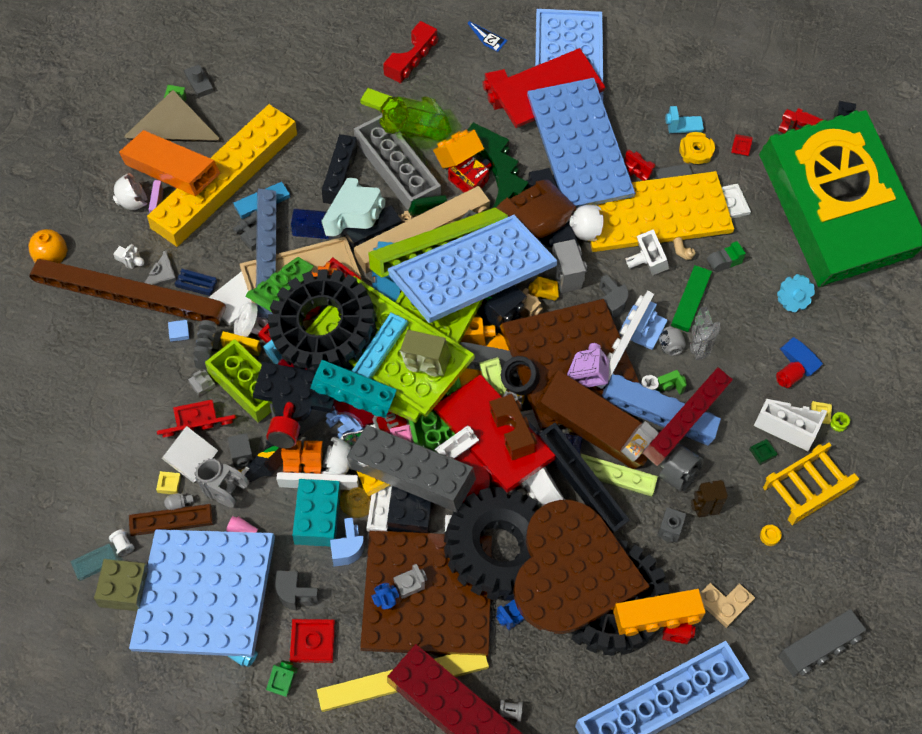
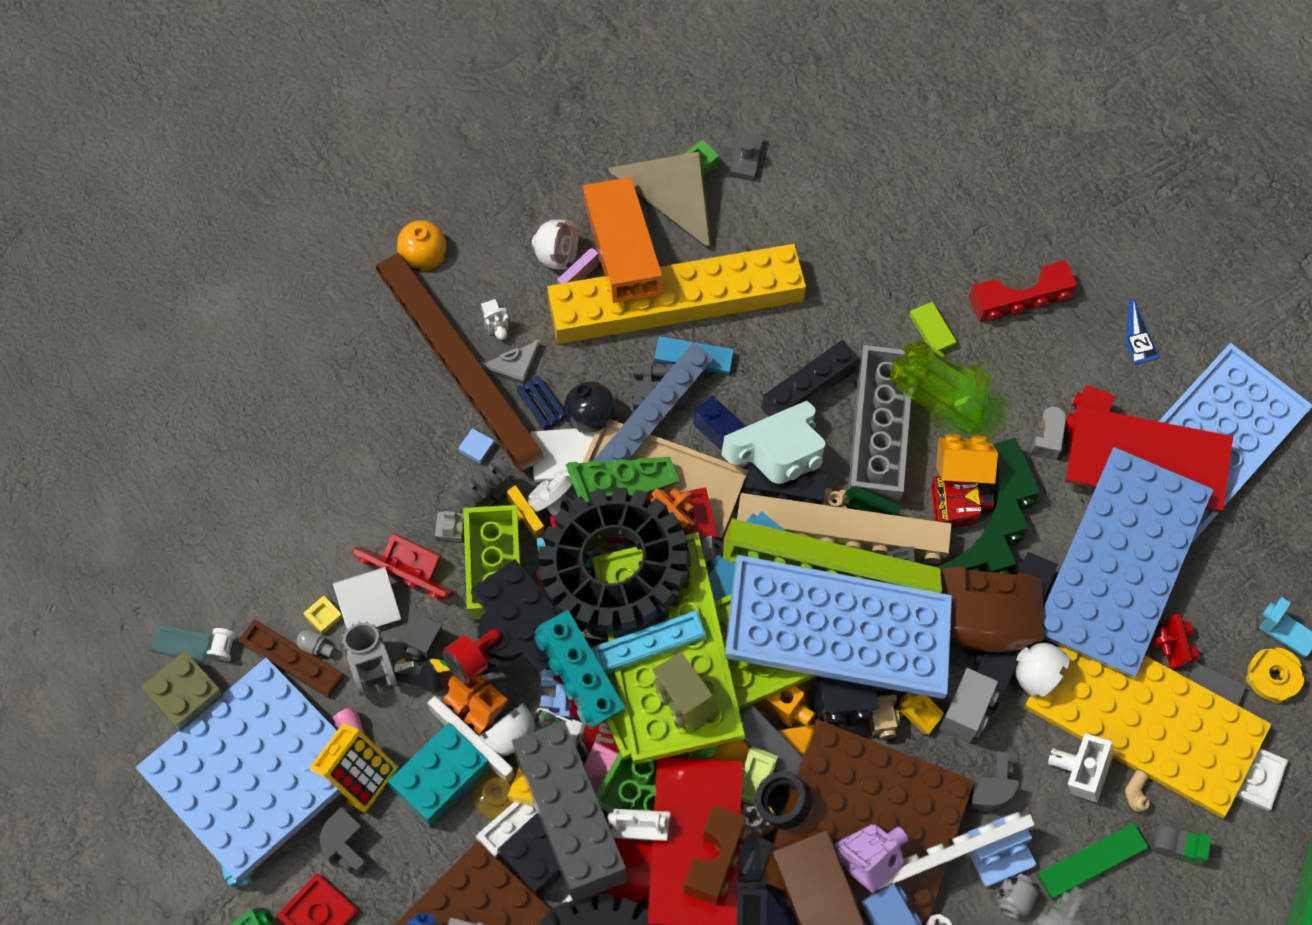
camera: 40 degrees right, 5 degrees up
(228, 263) = (589, 407): none -> black cylinder
(266, 540) = (354, 766): none -> panel
(347, 549) = (440, 844): light blue brick -> none
(490, 114) = (1051, 438): none -> light grey leg

